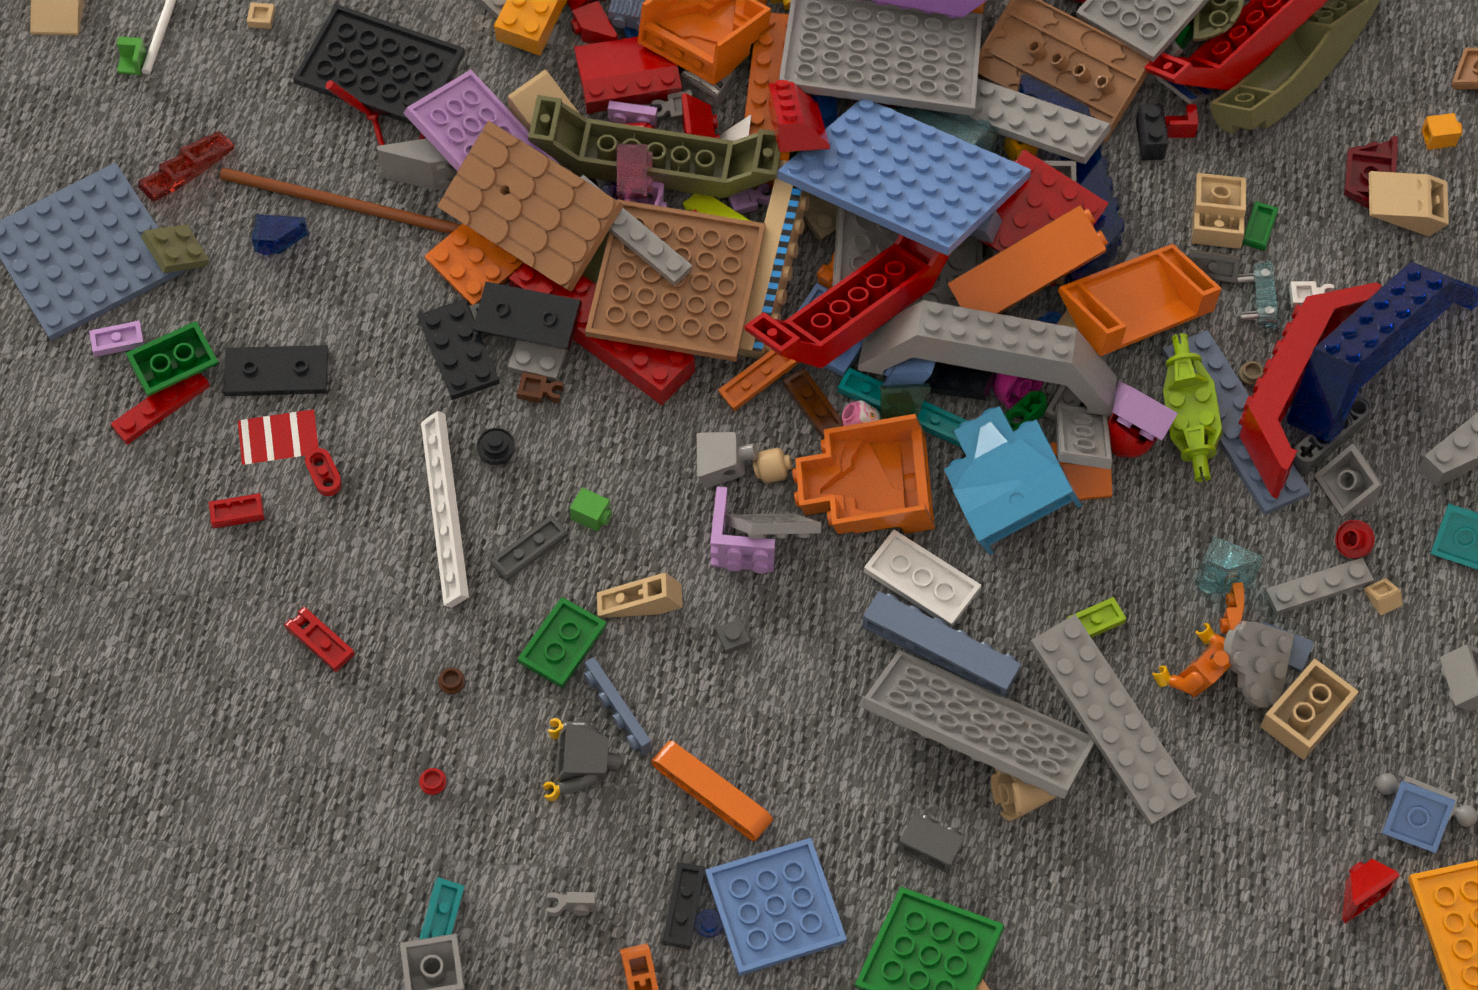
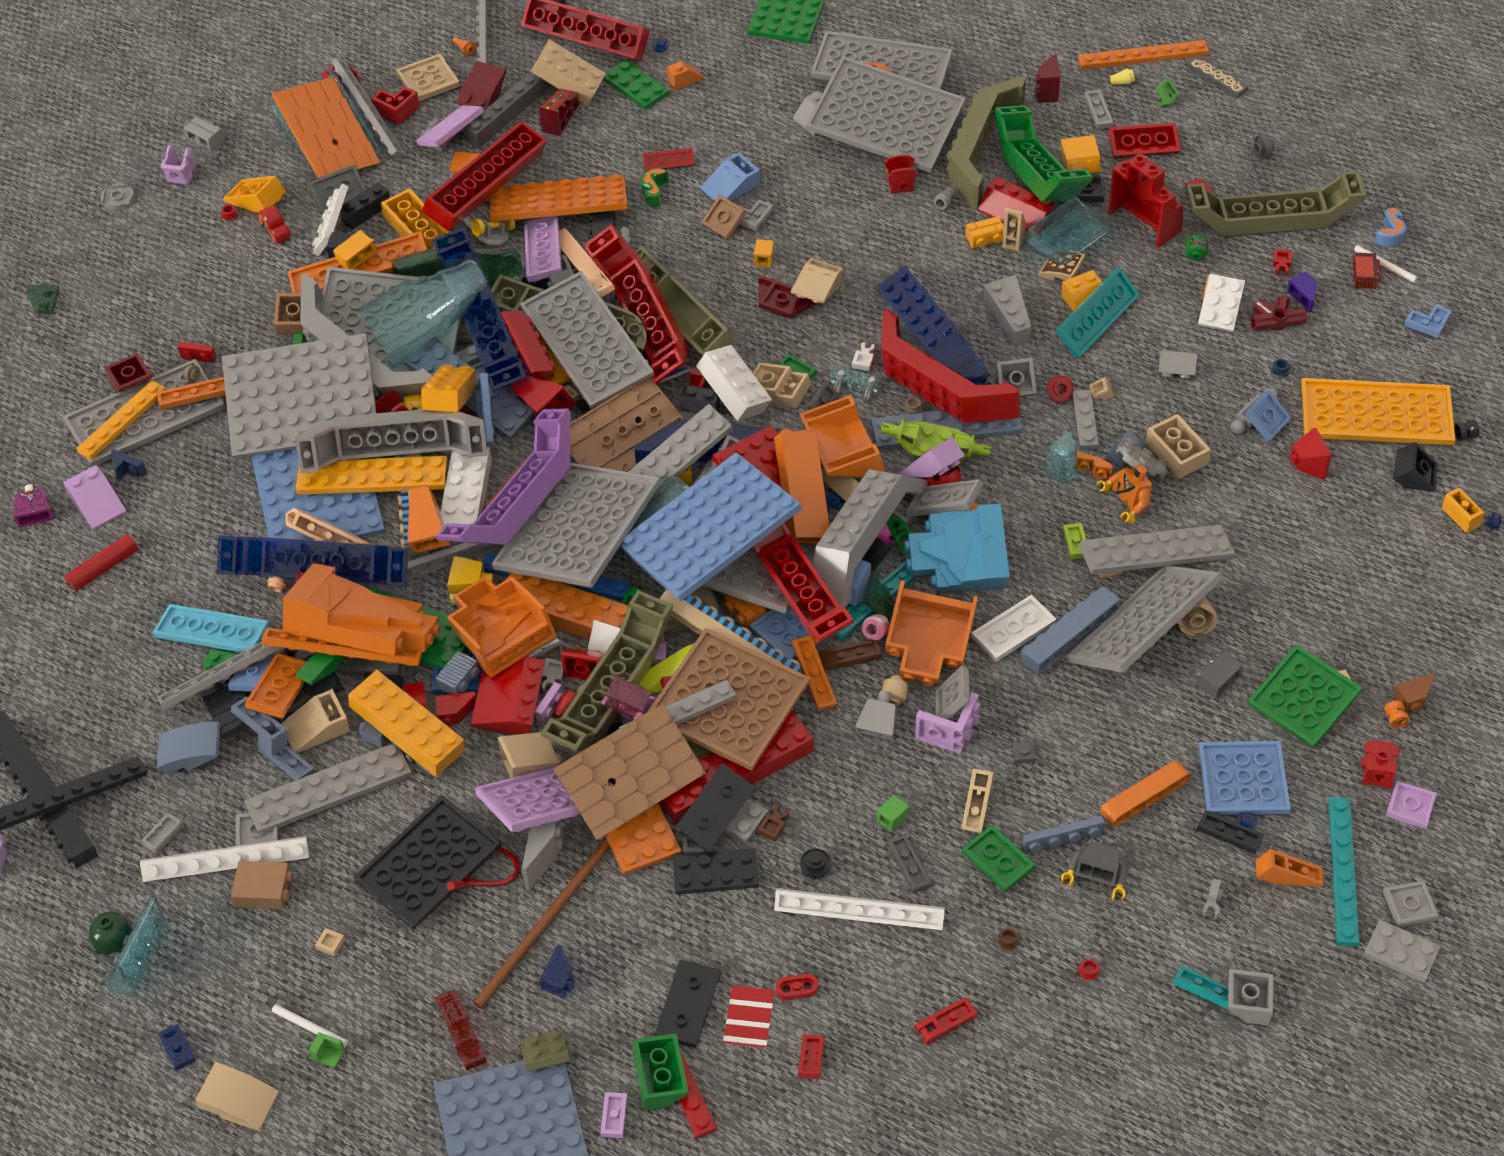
camera: 70 degrees left, 10 degrees down
(795, 118) = (632, 579): red slope -> none
(1184, 153) = (734, 382): none -> white brick

